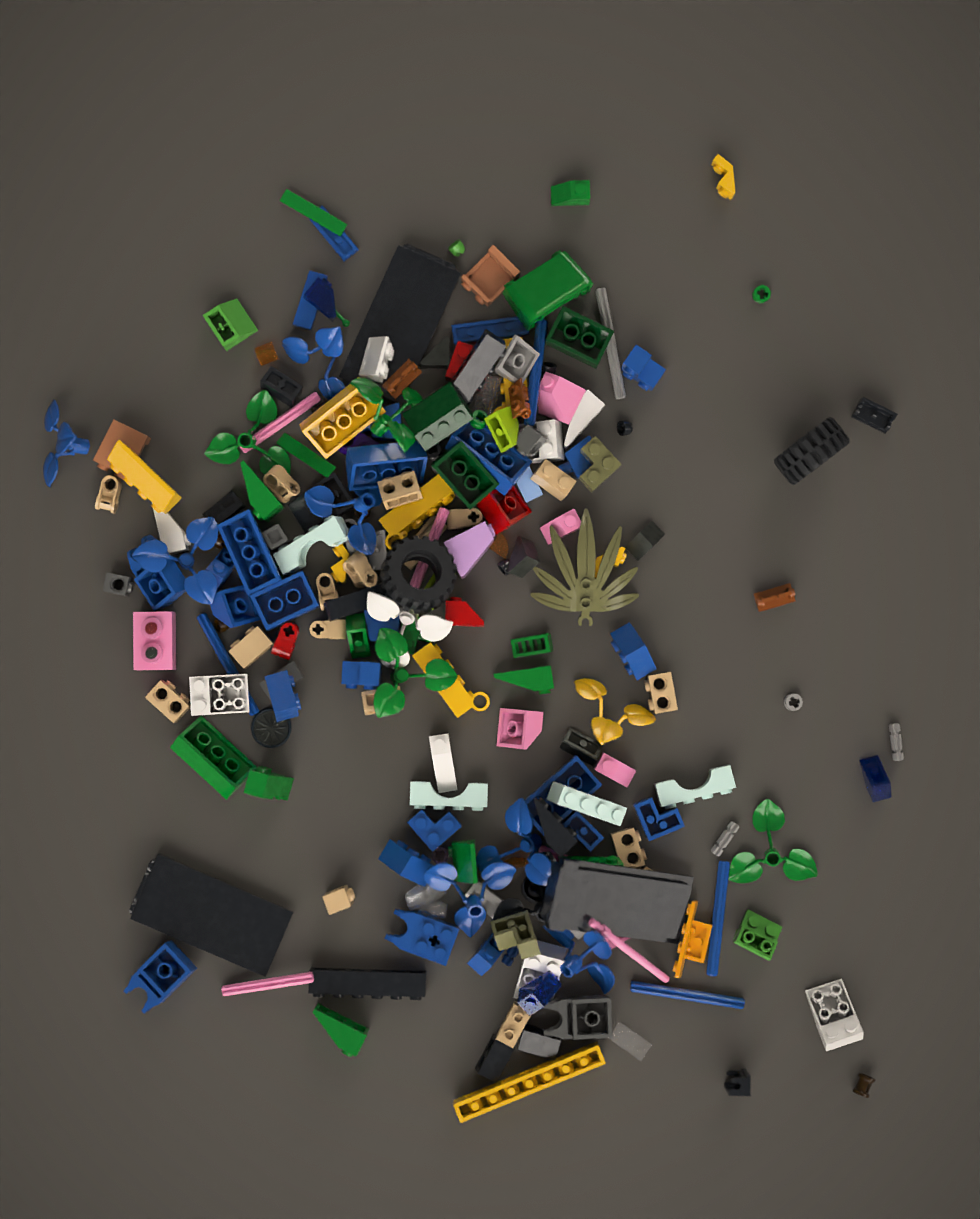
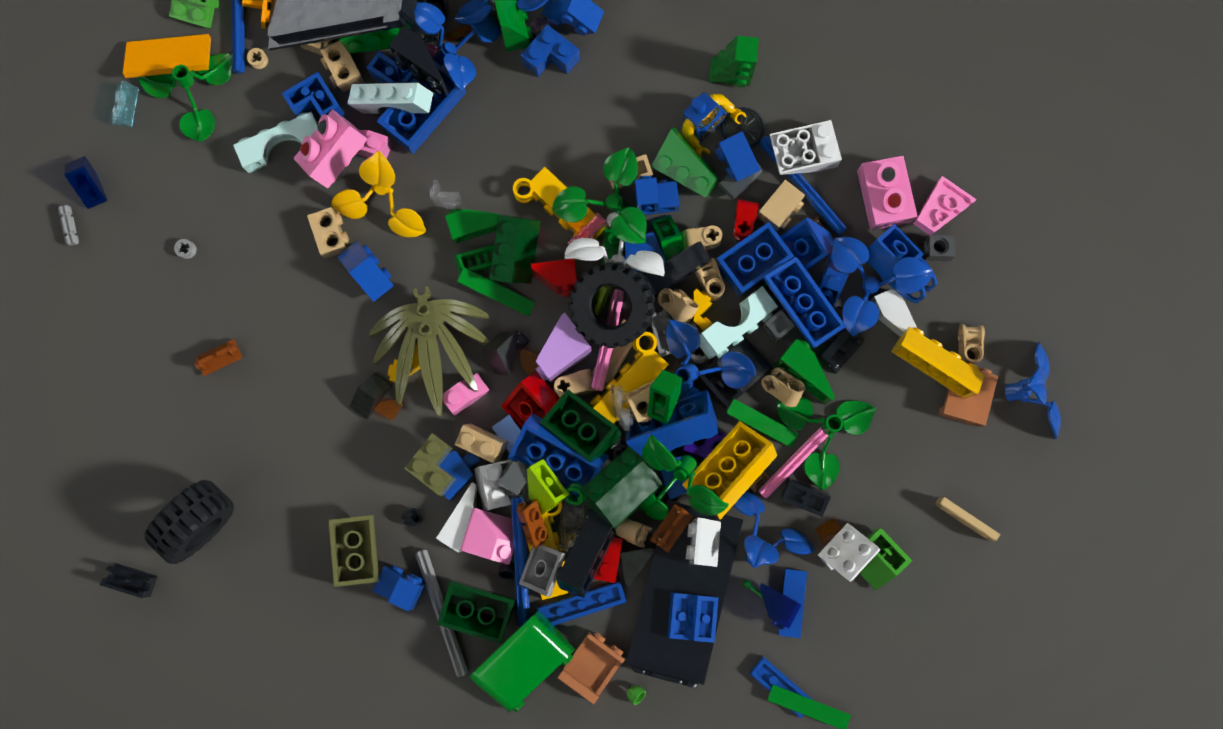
camera: 170 degrees right, 5 degrees down
(107, 621) = (942, 206): none -> bright pink wing
(146, 343) = (967, 519): none -> tan tile
(166, 705) = (861, 130): tan brick -> none
(213, 757) = (797, 85): green slope -> none
(254, 330) = (848, 552): none -> white bracket
(305, 739) = (704, 116): none -> torso
(330, 697) = (685, 165): none -> green wedge
(387, 486) = (664, 396): none -> green slope
(397, 301) = (692, 617): none -> blue slope
(423, 795) = (565, 84): light aqua arch -> none
(426, 482) = (621, 414): none -> clear slope
(428, 650) = (590, 228): none -> clear pink pin
(433, 380) = (633, 532): none -> tan piece
(443, 762) = (553, 123): white slope -> none
(497, 646) = (514, 249): none -> dark green slope
(518, 728) = (477, 170): bright pink slope -> none
(519, 613) = (496, 291): none -> green sticker
(549, 704) = (446, 199): none -> clear bracket
(581, 745) = (409, 164): pearl dark grey slope -> none
(631, 526) = (389, 409): none -> clear orange tile
(648, 766) = (329, 148): none -> bright pink piece
(676, 406) = (353, 550): none -> olive slope
(704, 877) = (259, 53): none -> tan bush
(725, 838) = (241, 95): light grey axle -> none
(766, 290) = (280, 696): green bush -> none
(787, 886) = (163, 54): none -> light orange tile
(829, 856) = (126, 98): none -> clear light blue hinge

